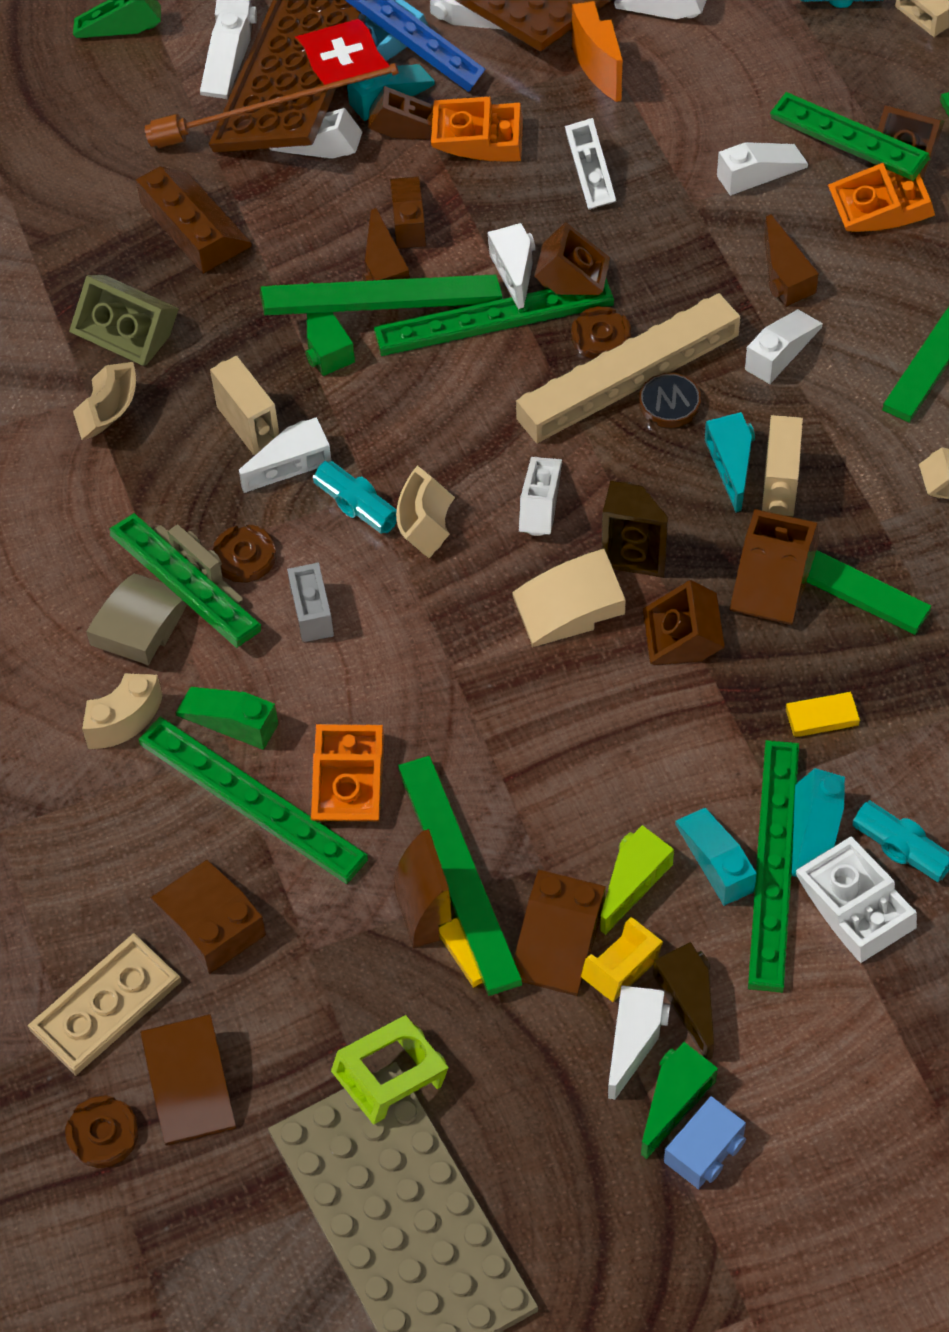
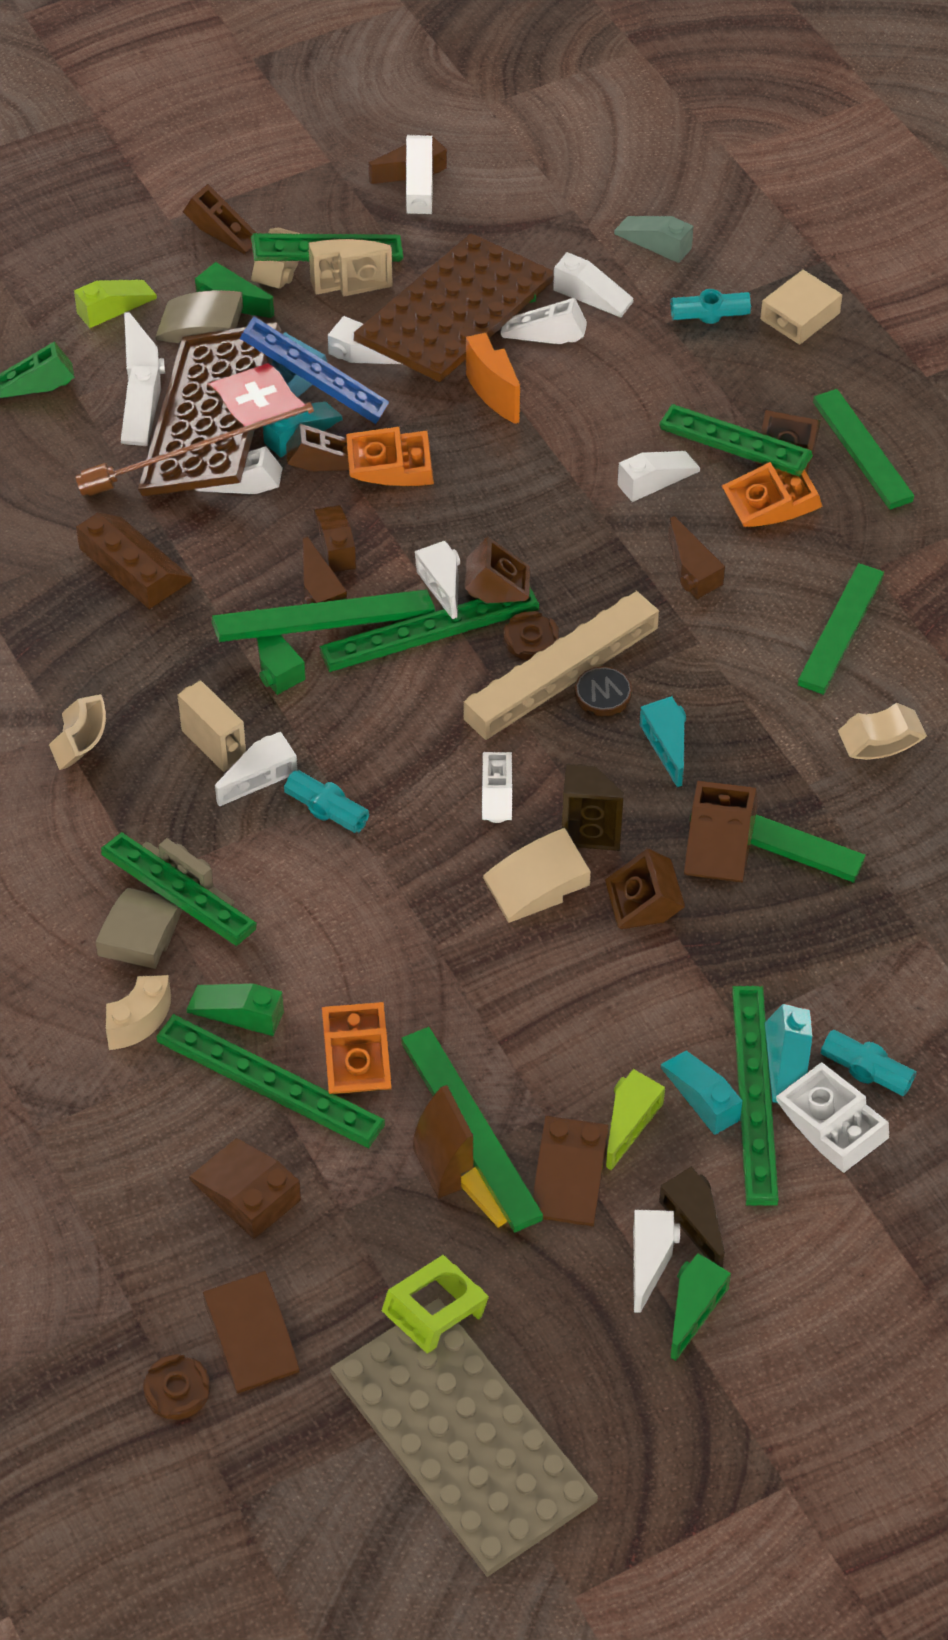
camera: 10 degrees left, 5 degrees down
(104, 1004) = (161, 1274): tan tile -> none
(122, 318) = (81, 656): olive slope -> none
(245, 553) = (231, 860): reddish brown tile -> none
(310, 602) = (300, 898): light grey panel -> none
(423, 512) = (392, 808): tan brick -> none
(590, 164) = (500, 482): white slope -> none
(623, 960) = (632, 1189): yellow panel -> none
(705, 1143) = (727, 1340): medium blue brick -> none
(780, 344) = (697, 633): white slope -> none
(782, 465) = (715, 739): tan brick -> none
(822, 714) = (780, 959): yellow tile -> none

